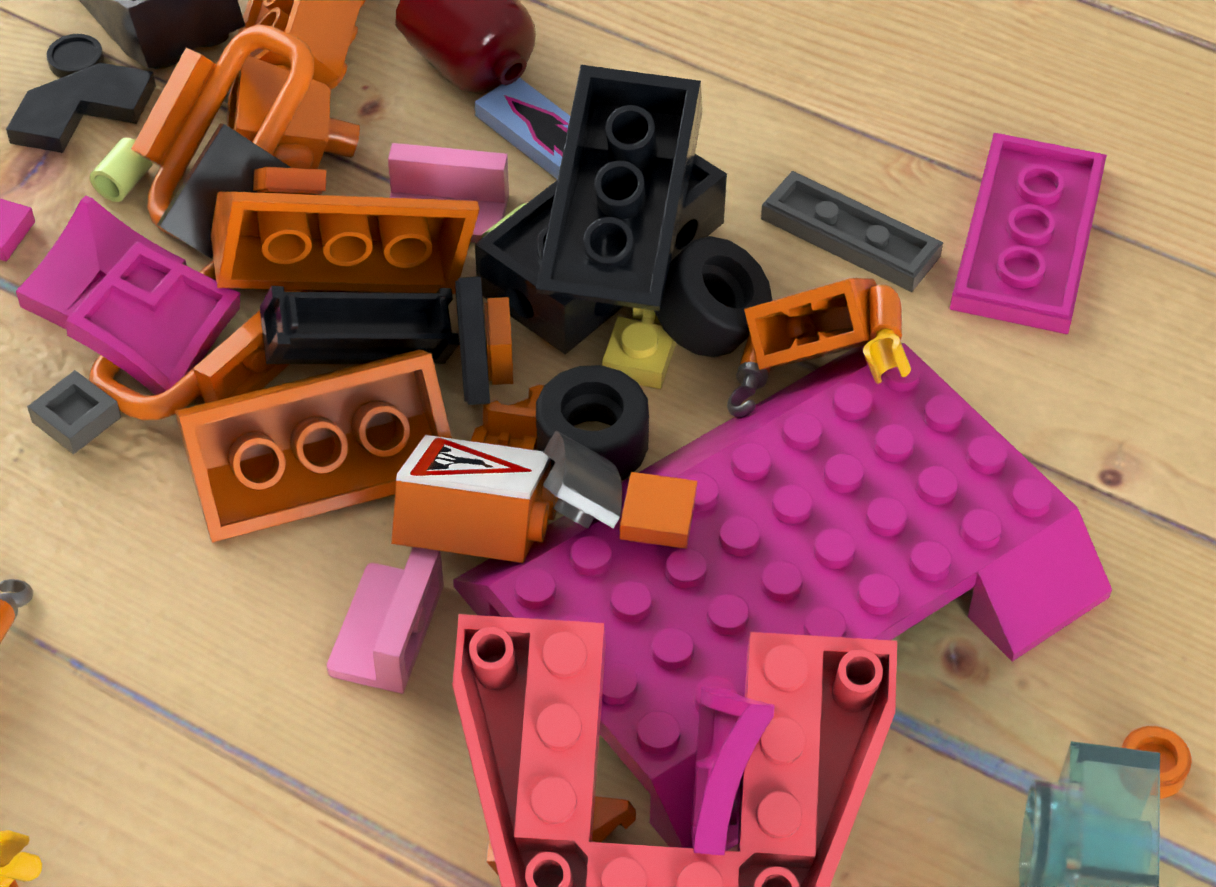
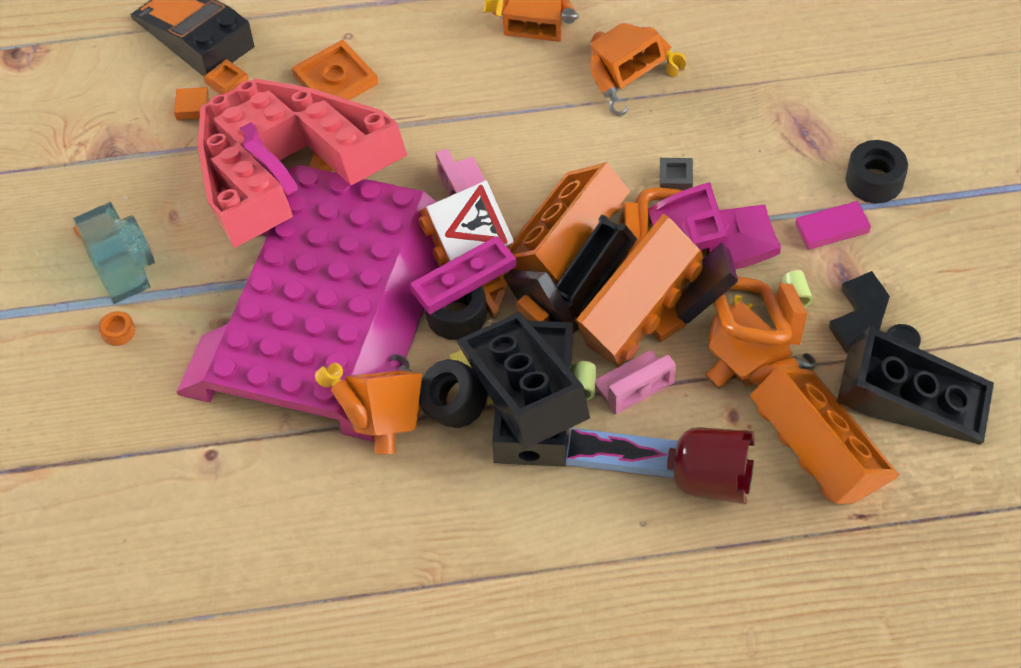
camera: 145 degrees right, 5 degrees up
(289, 180) = (682, 286): orange tile -> none
(558, 399) = (463, 275): none -> dark pink plate
(583, 482) = (417, 242): dark grey slope -> none
(658, 510) = (375, 248): orange tile -> none
(852, 231) = (427, 503): dark grey tile -> none
(1029, 233) = (337, 569): dark pink tile -> none

